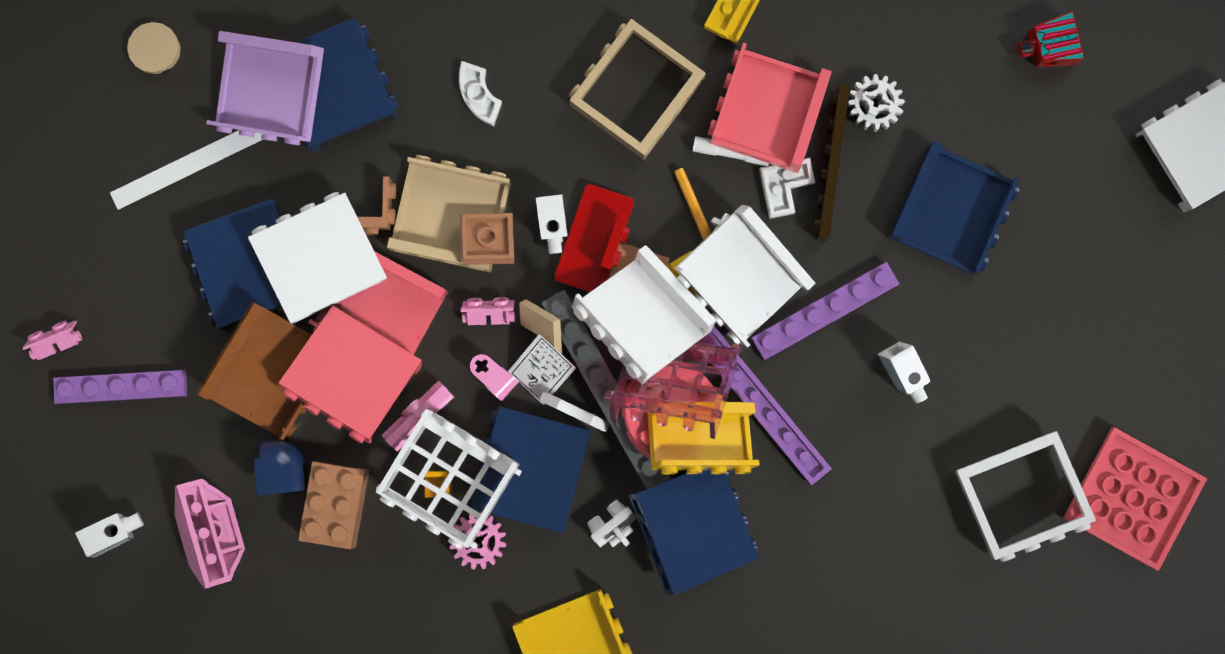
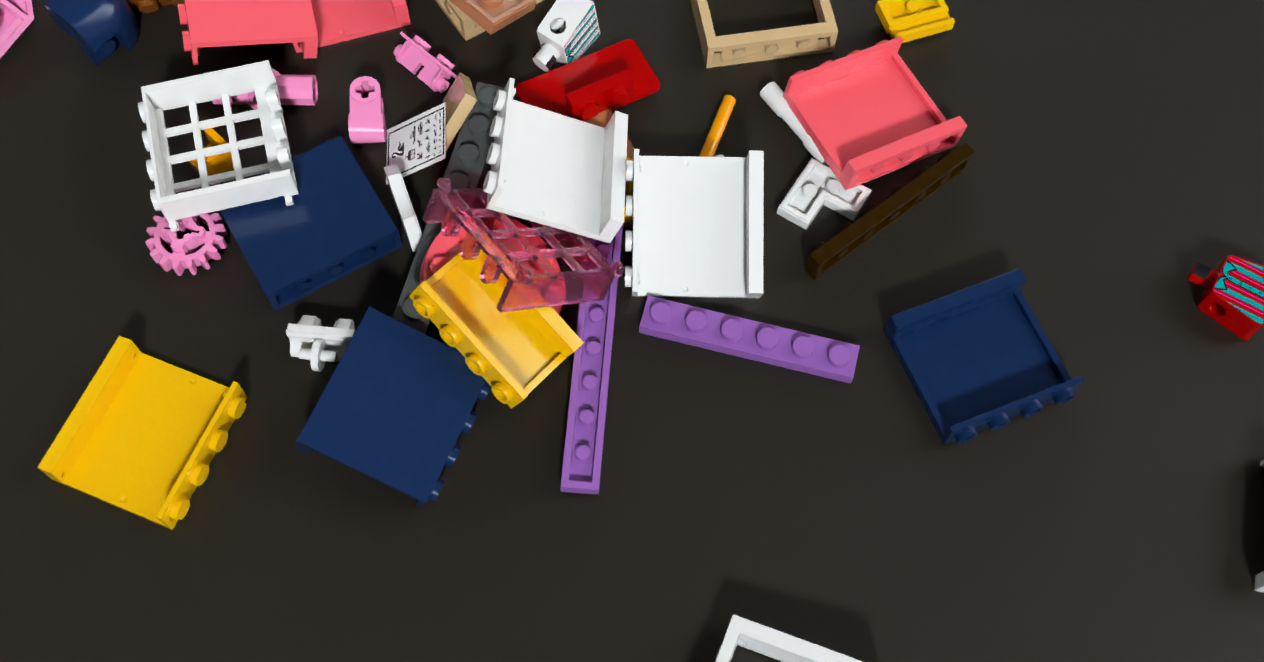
camera: 40 degrees right, 20 degrees down
(333, 505) = (100, 91): nougat brick -> none
(866, 100) = (987, 195): white gear -> none
(901, 362) = (780, 448): white torso -> none

